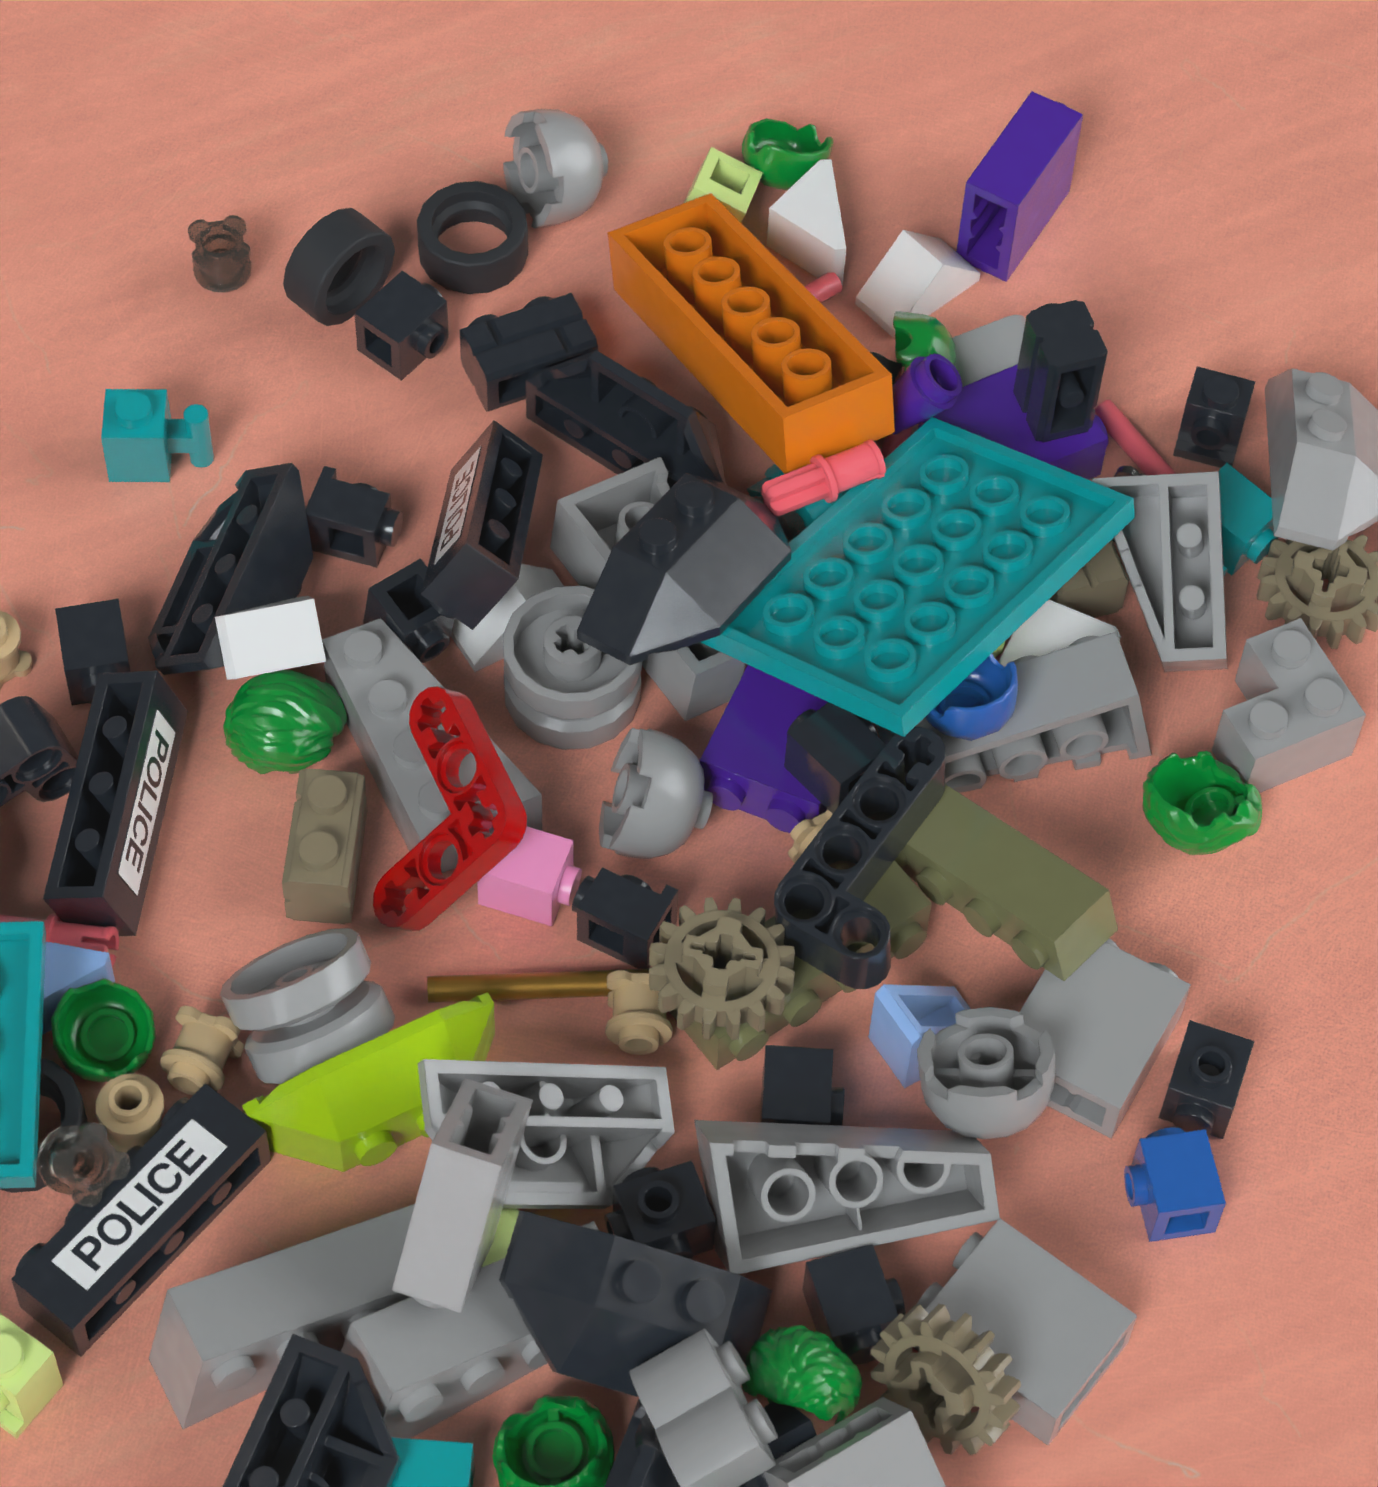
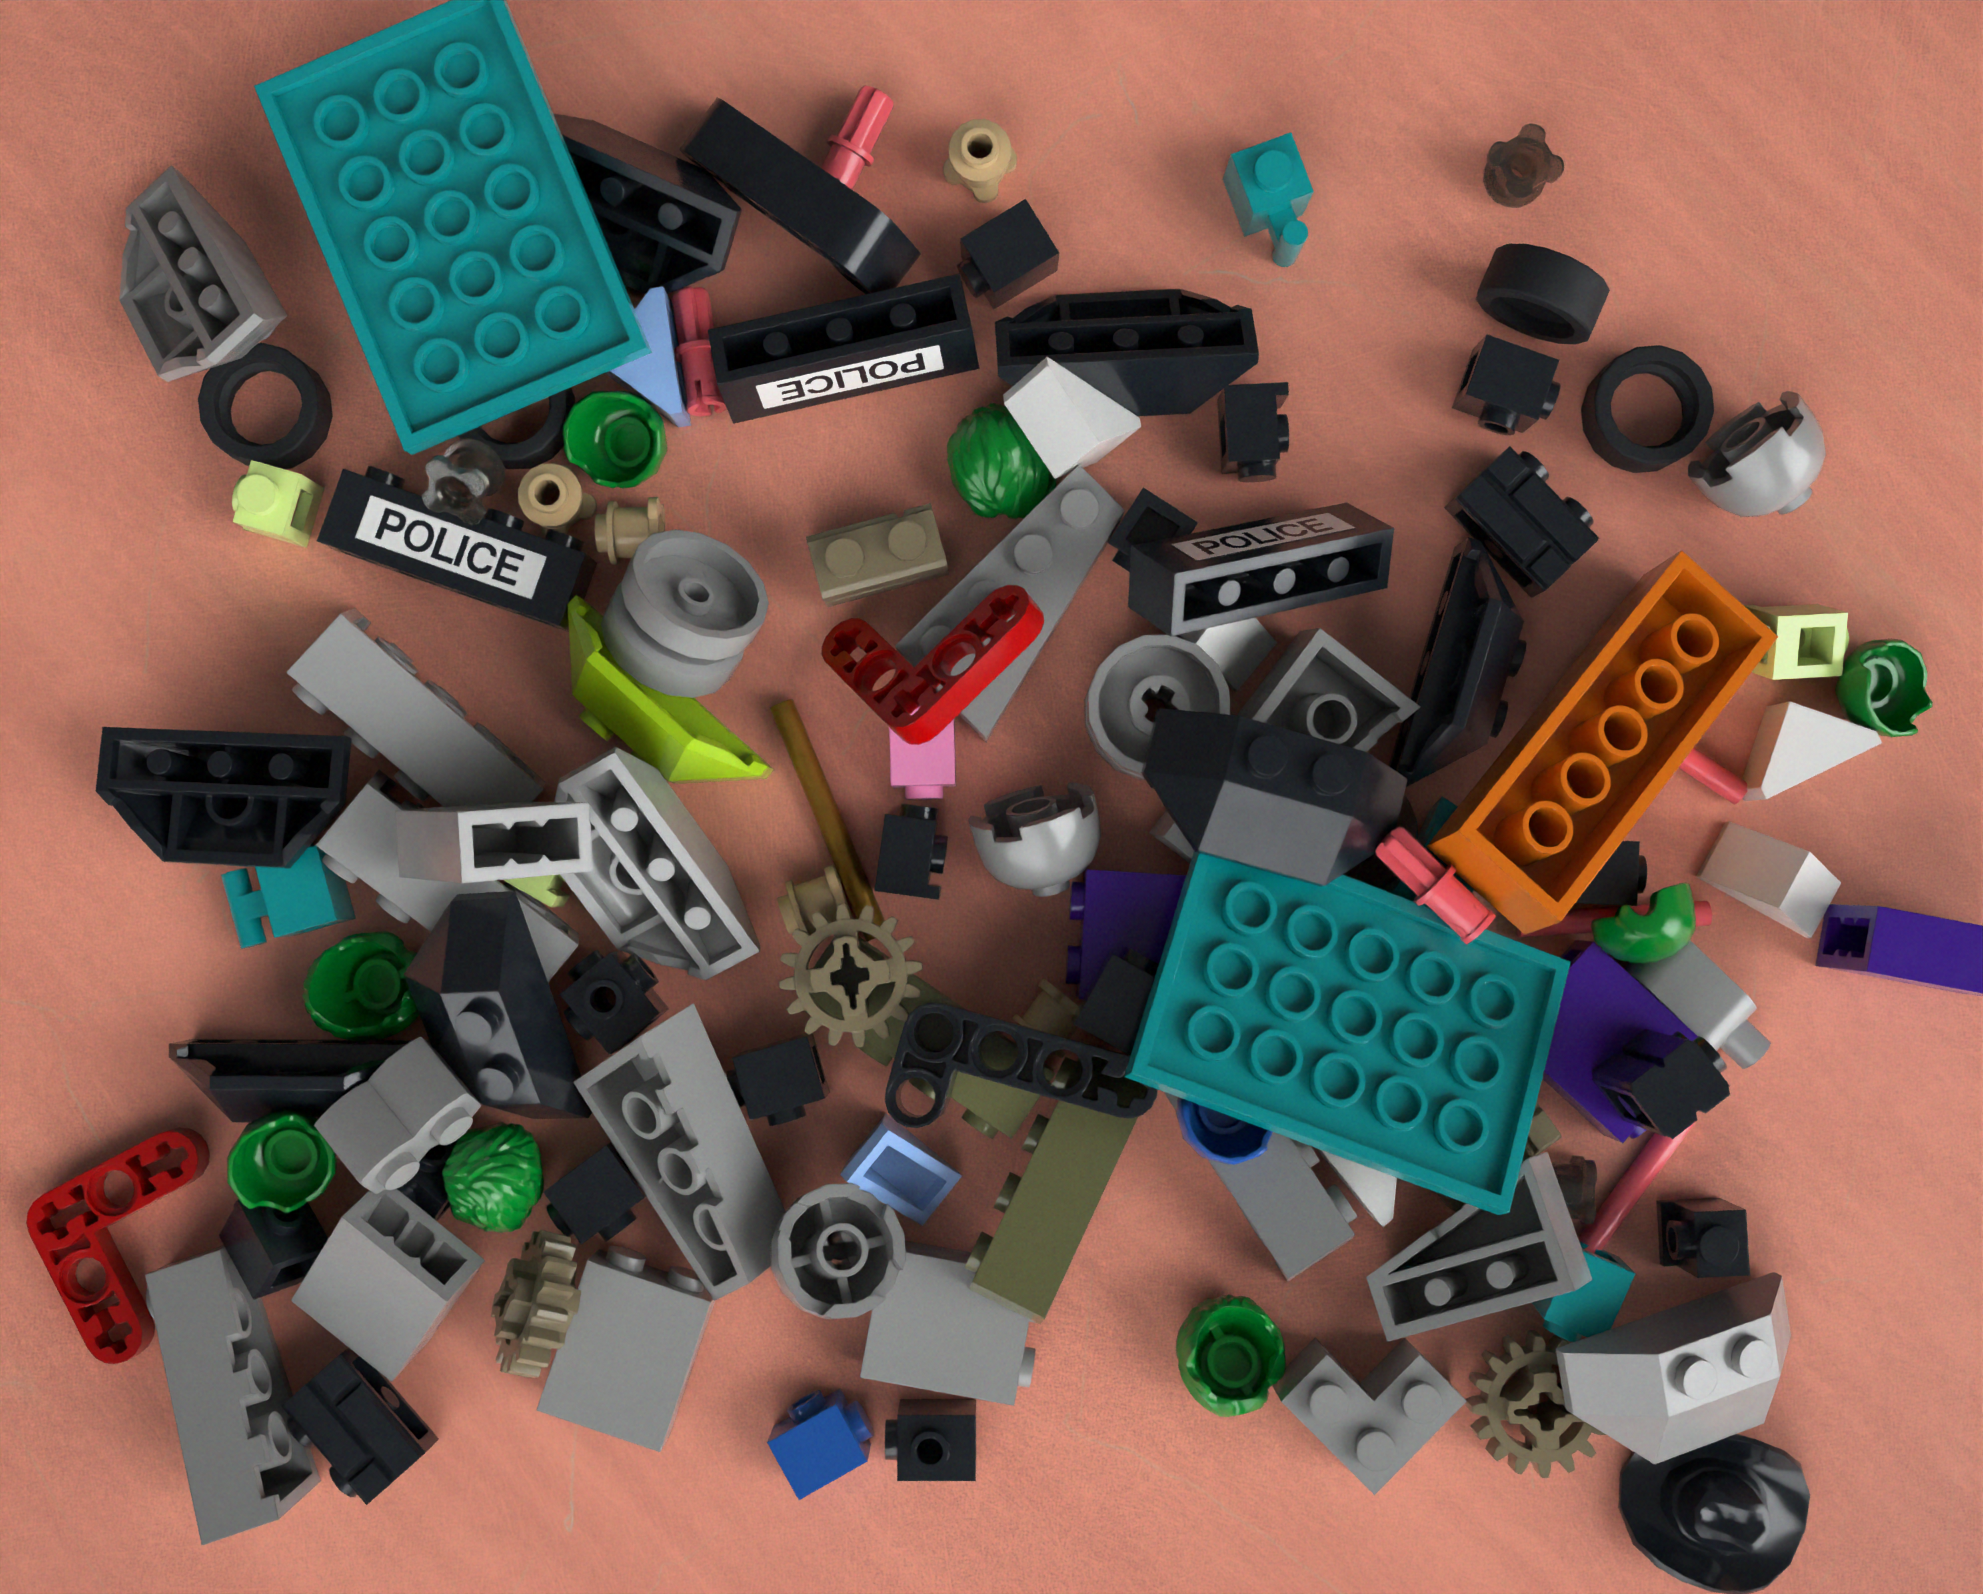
camera: 70 degrees right, 30 degrees up
(924, 391) = (1590, 948): dark purple cone -> none

